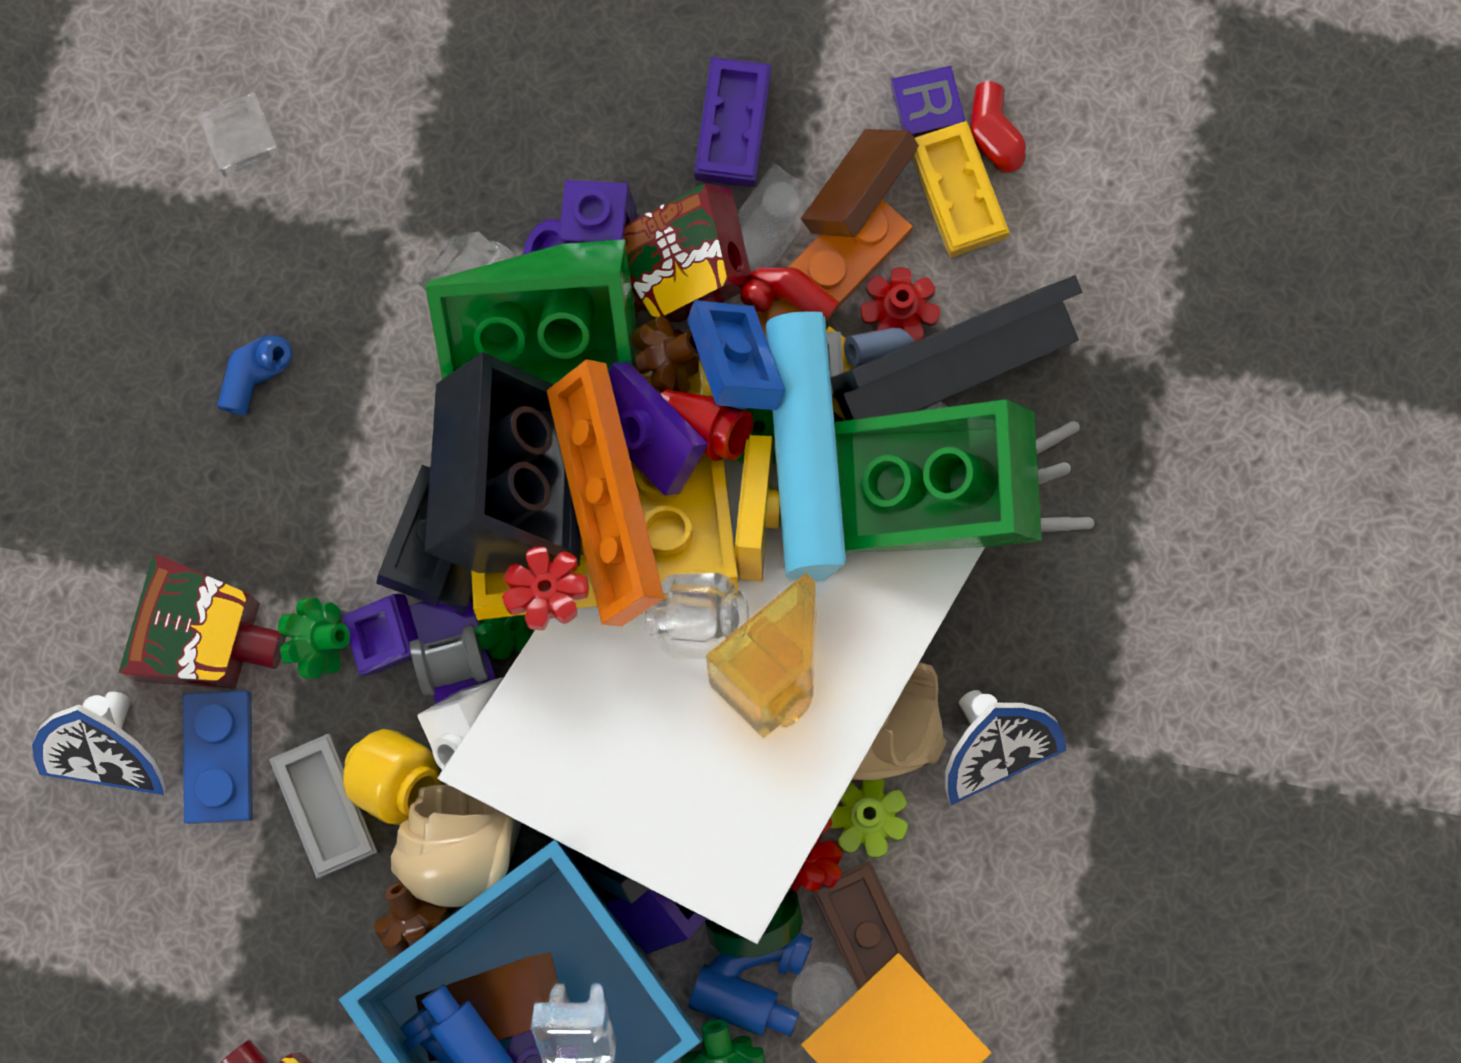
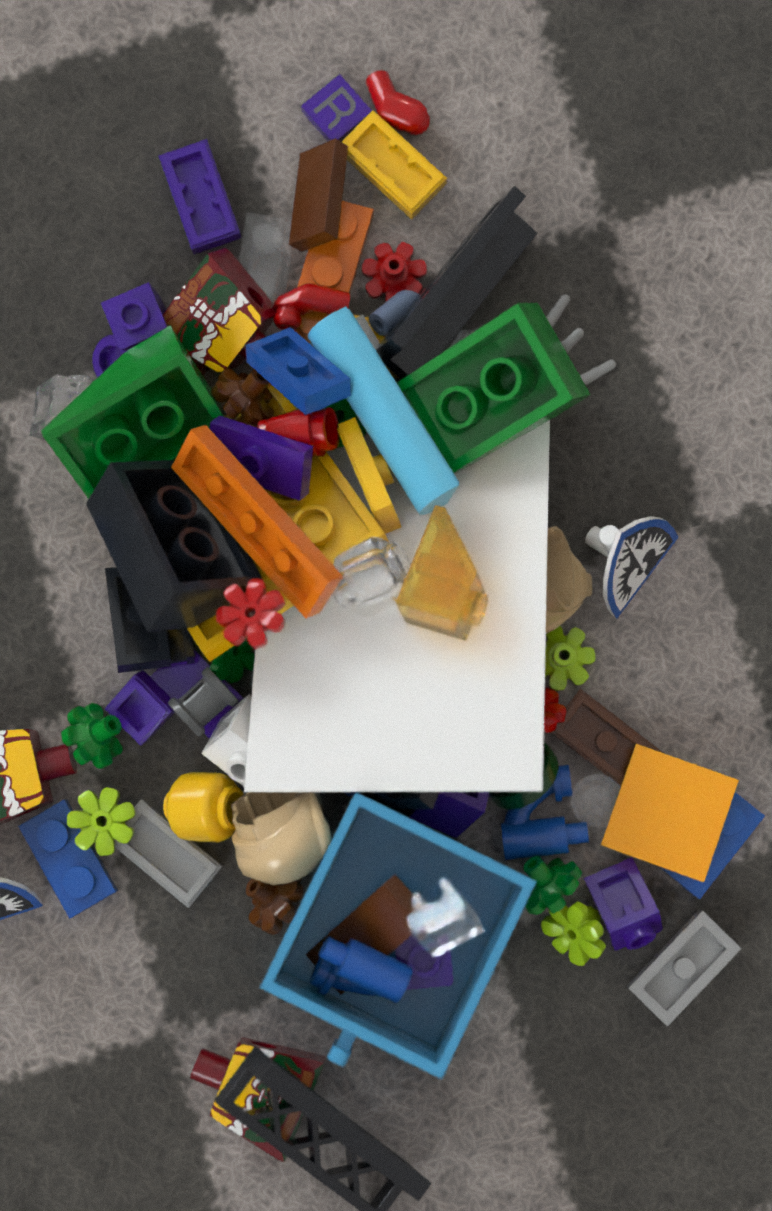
camera: 25 degrees left, 5 degrees up
(261, 734) = (91, 825): none -> lime plant

